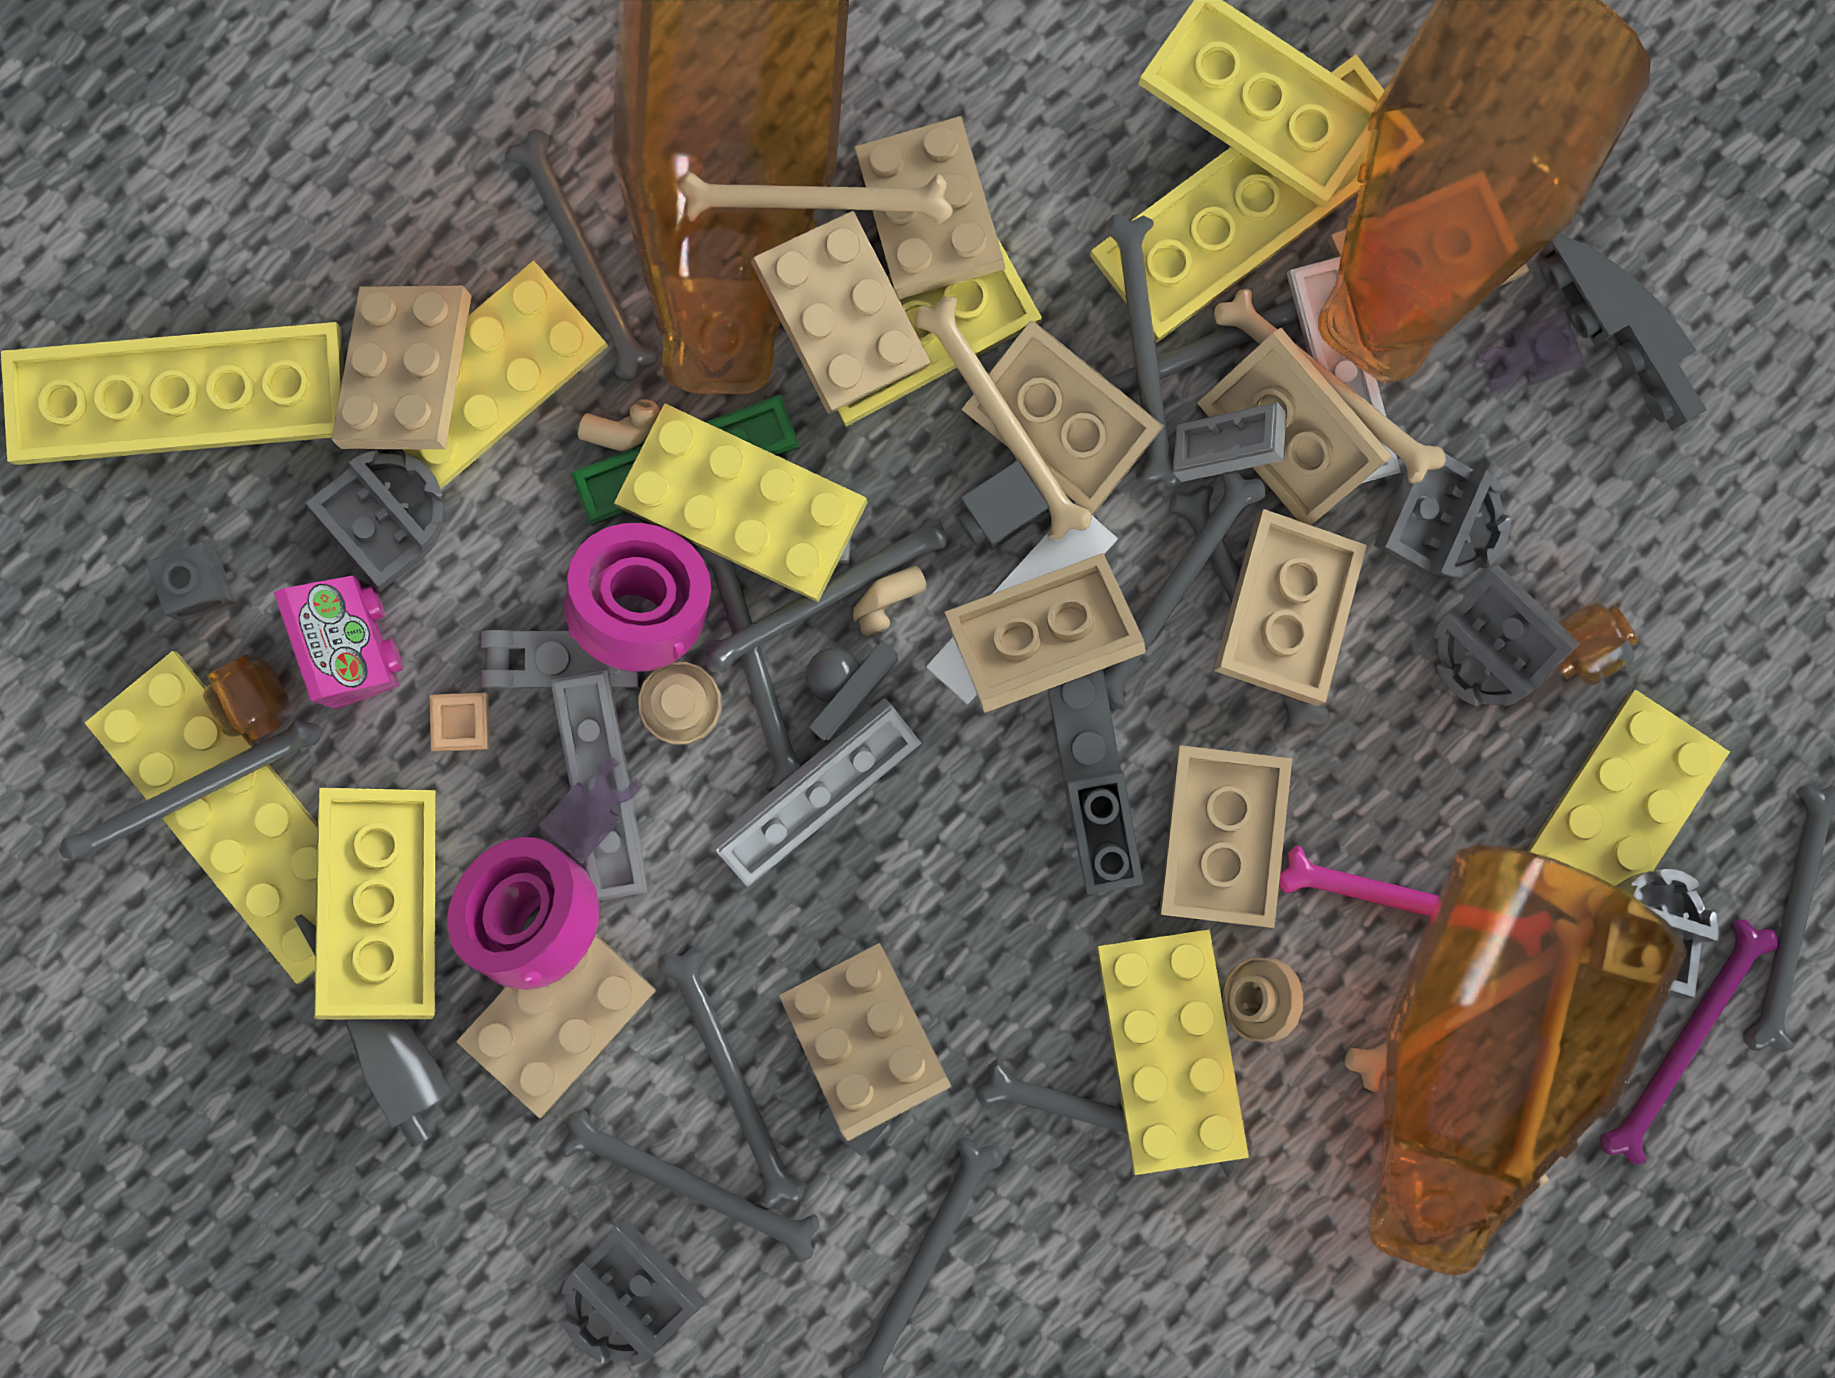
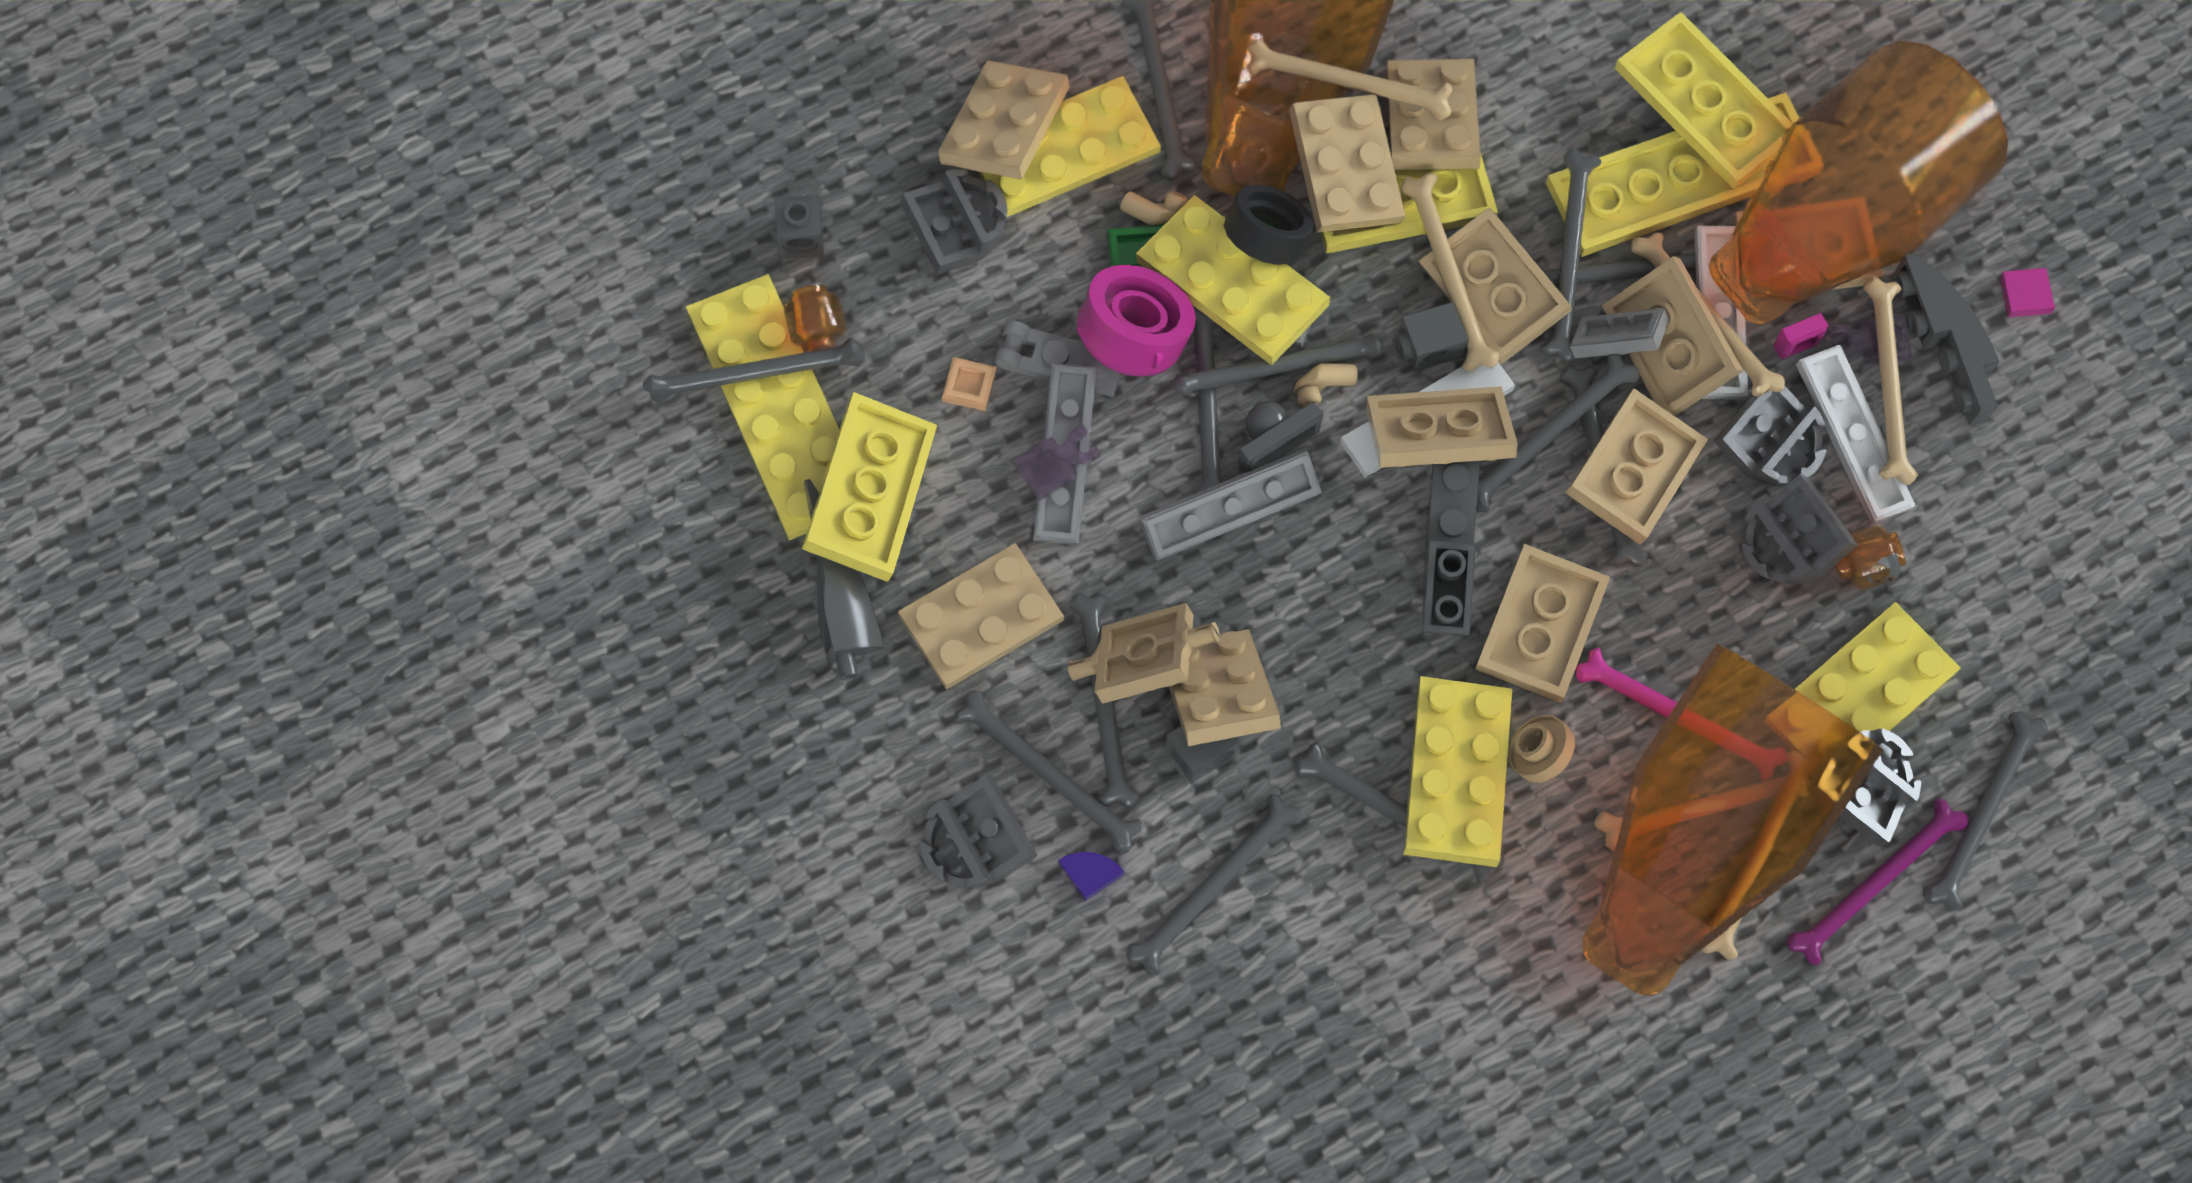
camera: 15 degrees right, 15 degrees down
(172, 393) = (825, 96): light yellow plate -> none
(339, 640) = (900, 295): slope -> none
(500, 895) = (983, 522): dark pink piece -> none
(680, 703) = (1143, 413): tan plate -> none
(763, 1024) = (1144, 653): none -> tan plate
(767, 393) = (1260, 240): none -> black tyre
(773, 1296) = (1090, 872): none -> dark purple tile
(1448, 378) = (1800, 336): none -> dark pink tile
(1540, 486) = (1853, 432): none -> white tile
(1601, 515) = (1897, 463): none -> tan piece
(1705, 237) = (2027, 292): none -> dark pink tile

